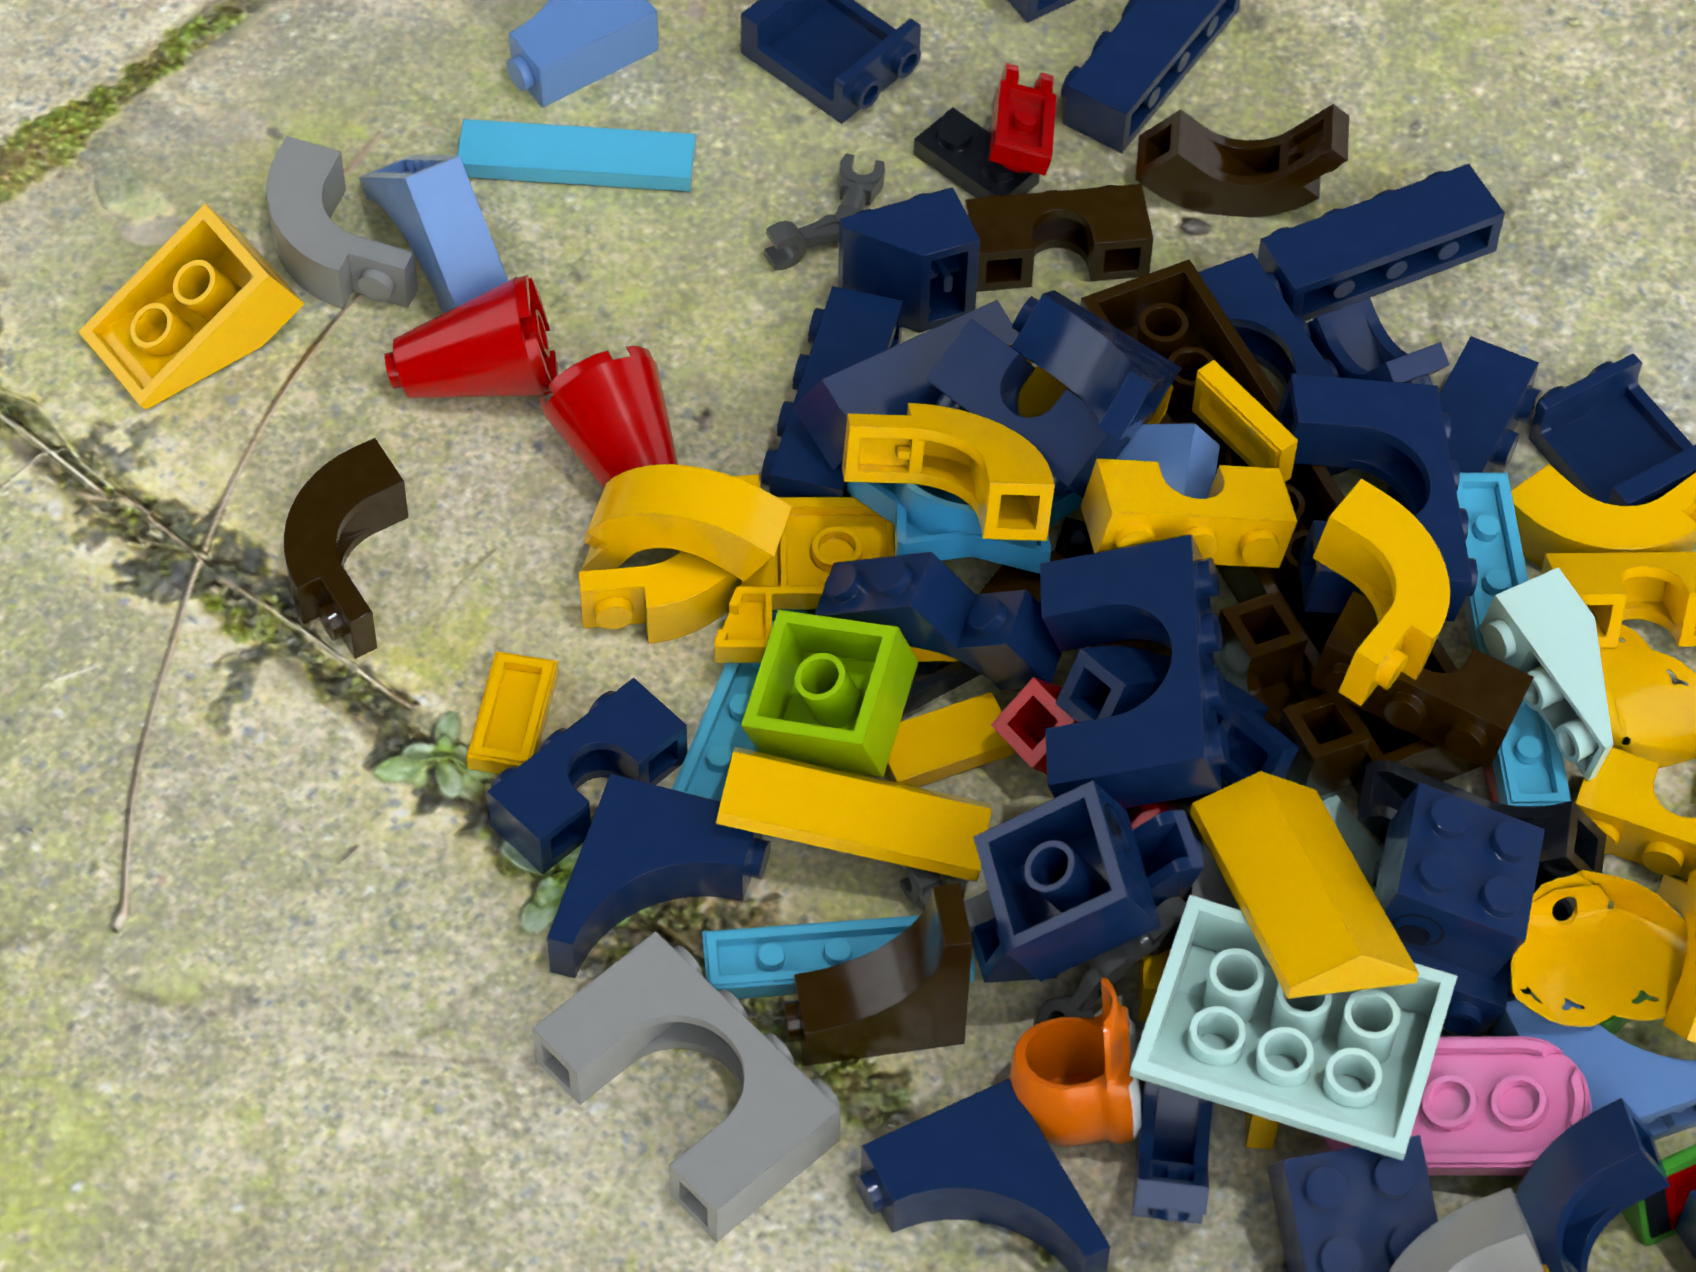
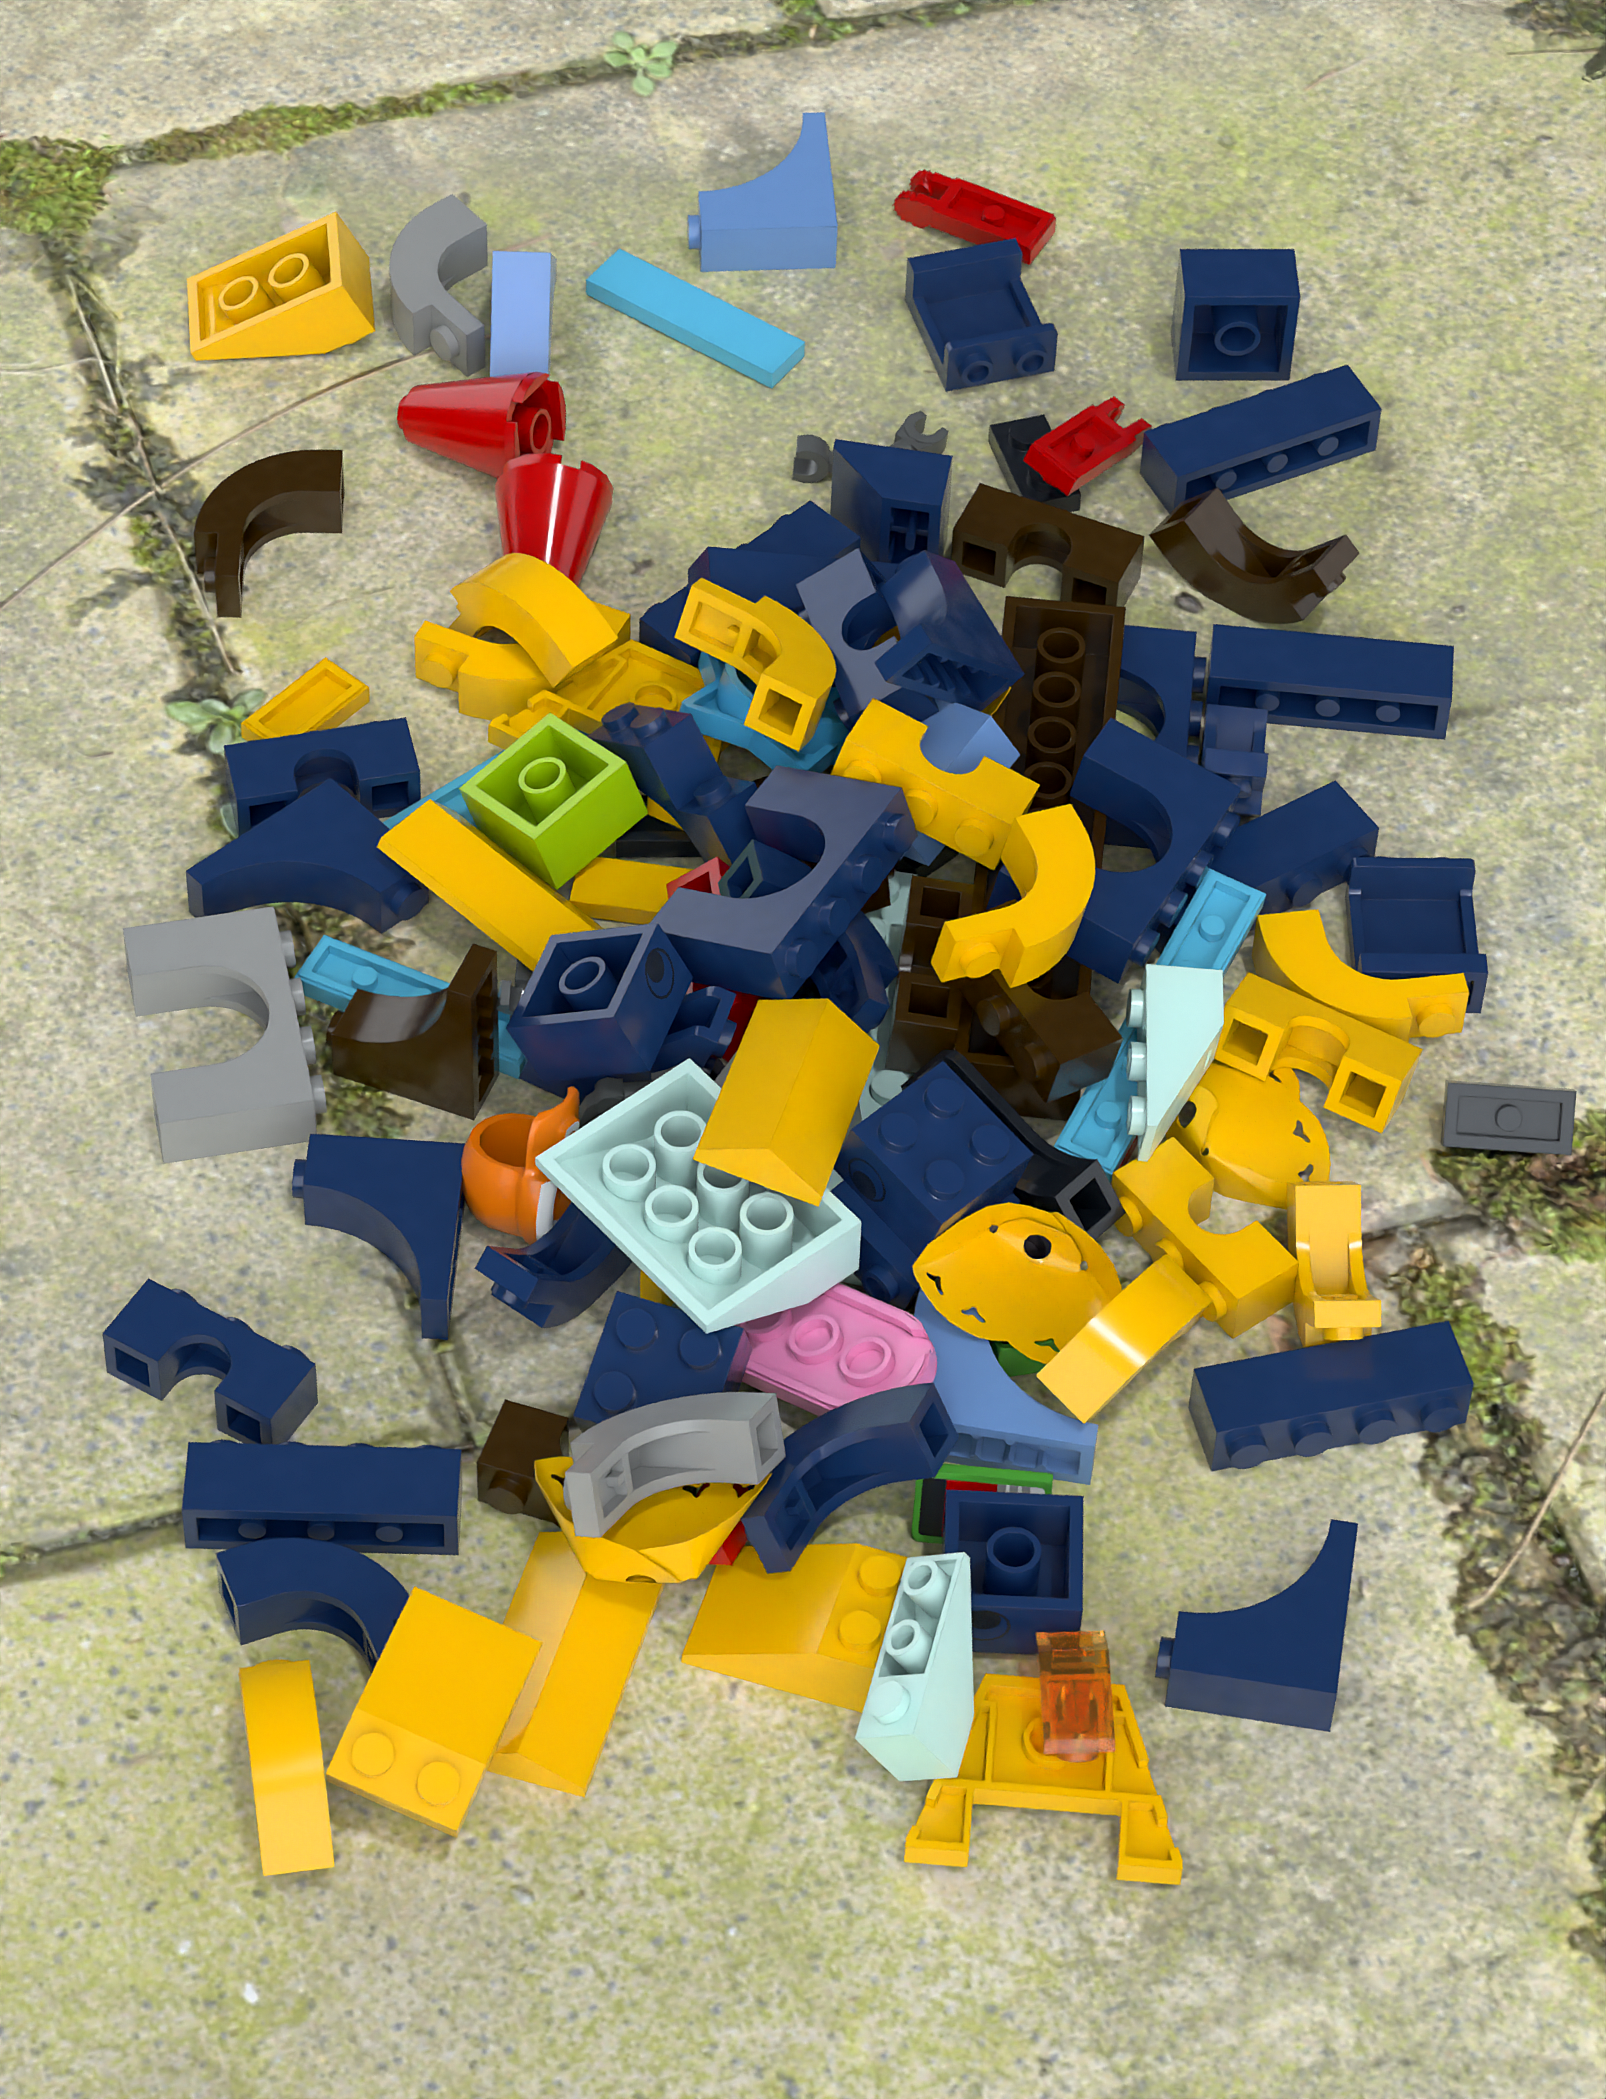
camera: 30 degrees right, 5 degrees down
(1242, 421) = (1049, 743): yellow tile -> none

